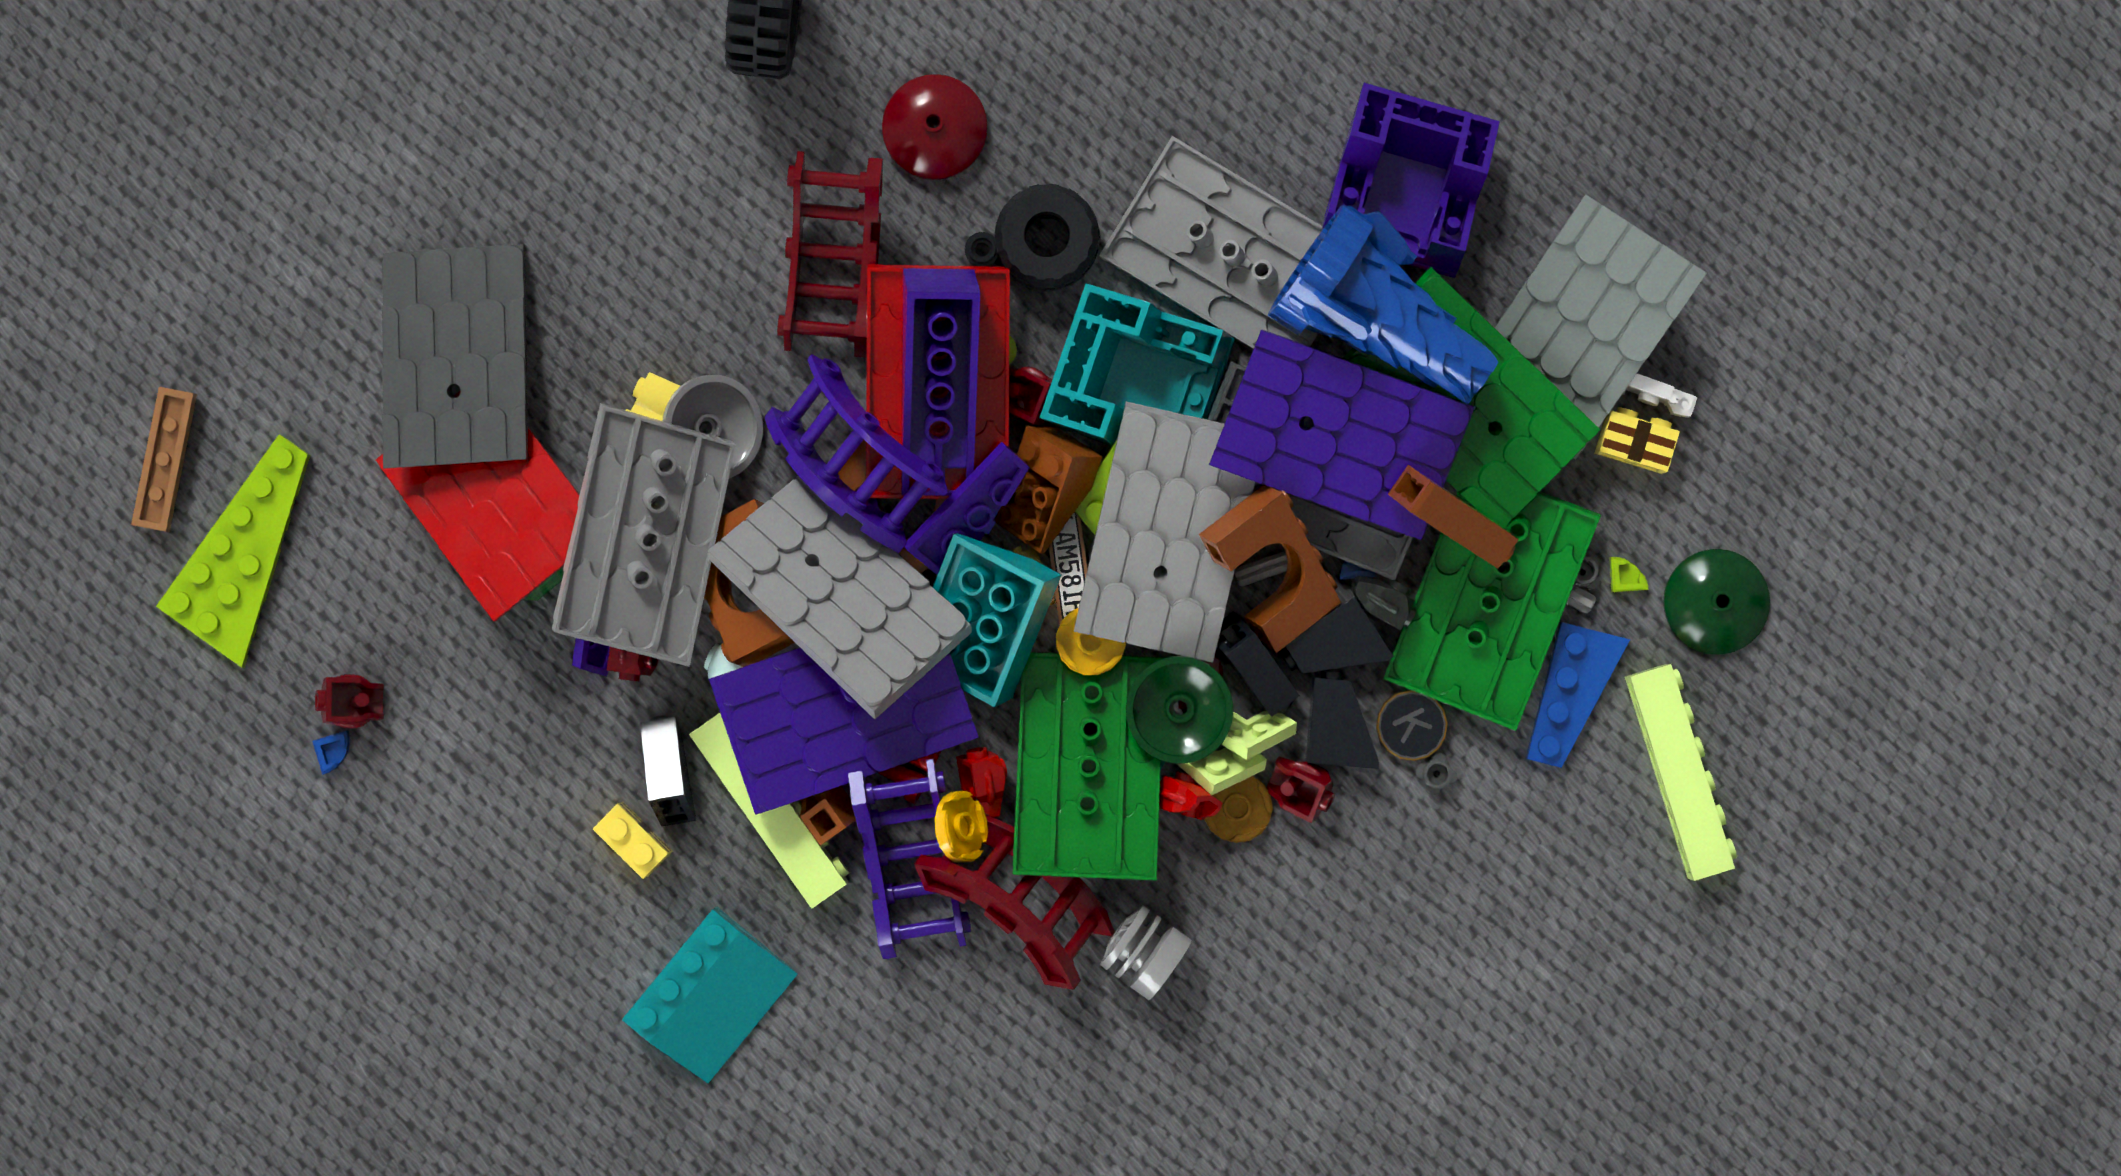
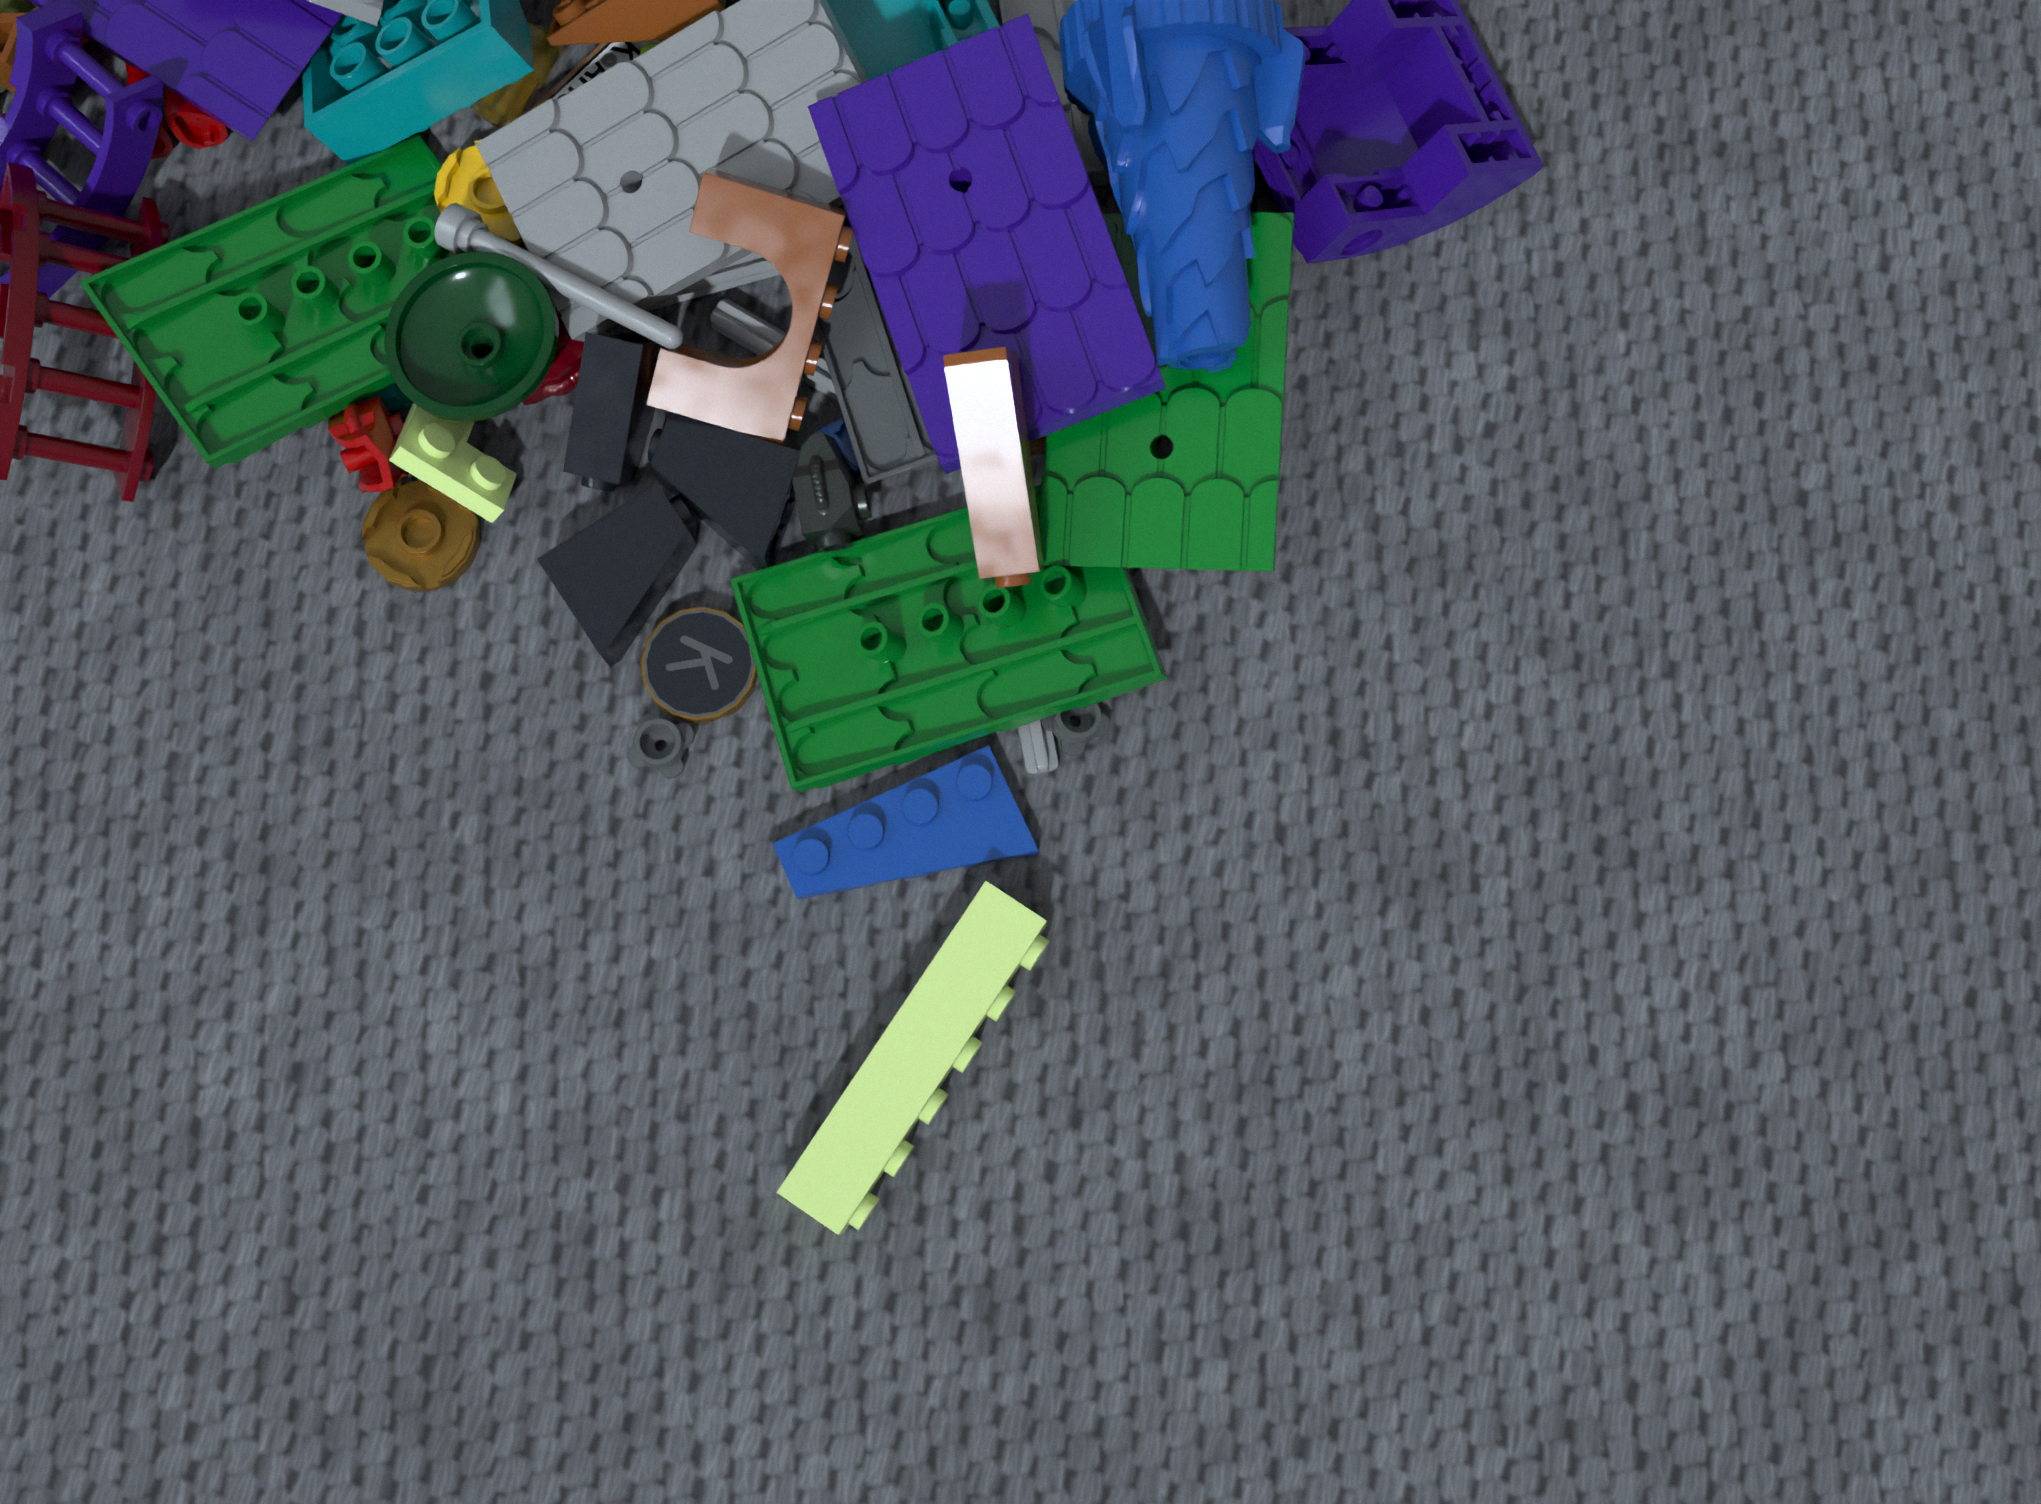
camera: 45 degrees right, 10 degrees down
(960, 826) = (102, 183): yellow tile -> none
(984, 777) = (208, 191): red hand -> none
(1118, 671) = (464, 231): none -> light grey piece
(1145, 952) = (122, 547): light grey wheel -> none
(1258, 733) = (508, 455): yellowish green plate -> none
(1301, 788) = (502, 587): dark red hand -> none
(1597, 306) = (1424, 445): light grey piece -> none
(1626, 576) = (1117, 783): lime tile -> none
(1637, 441) = (1301, 651): brick -> none
(1654, 391) = (1378, 612): white hinge -> none
(1692, 604) = (1173, 969): dark green dish -> none

